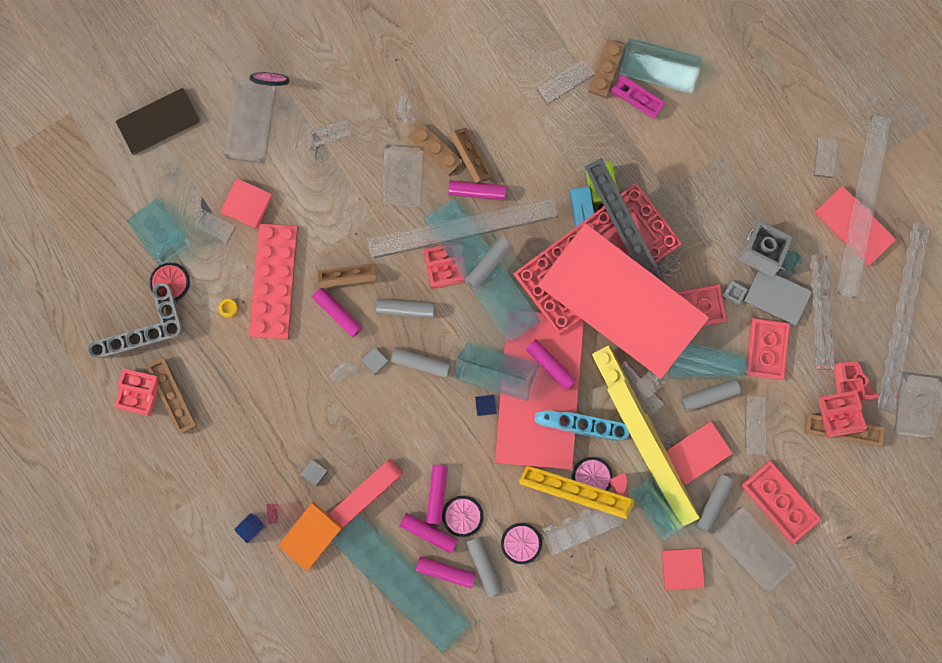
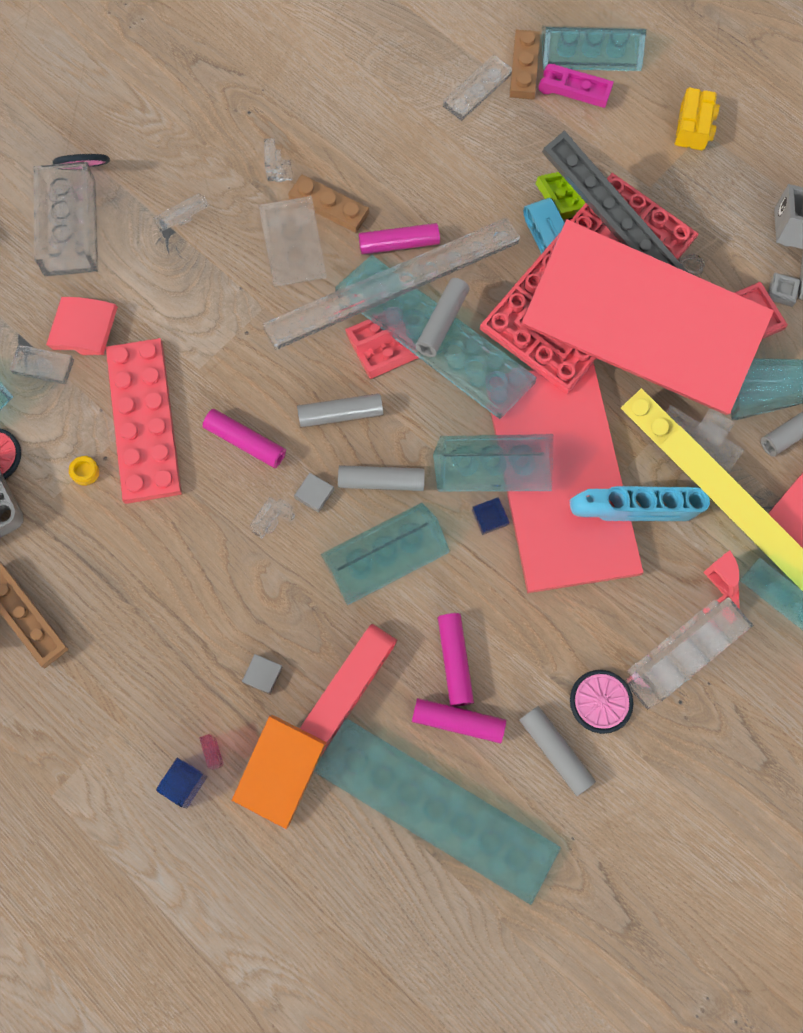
camera: 15 degrees left, 10 degrees down
(347, 275) = (246, 386): medium nougat plate -> none
(410, 413) = (385, 552): none -> clear light blue slope
(445, 572) = (501, 774): dark pink piece -> none
(462, 516) = (502, 683): bright pink wheel -> none
(471, 155) = (378, 198): medium nougat plate -> none
(551, 364) = (569, 432): dark pink piece -> none
(577, 492) = (667, 598): yellow tile -> none
(593, 472) = (673, 579): bright pink wheel -> none
(715, 147) = (696, 119): none -> yellow brick

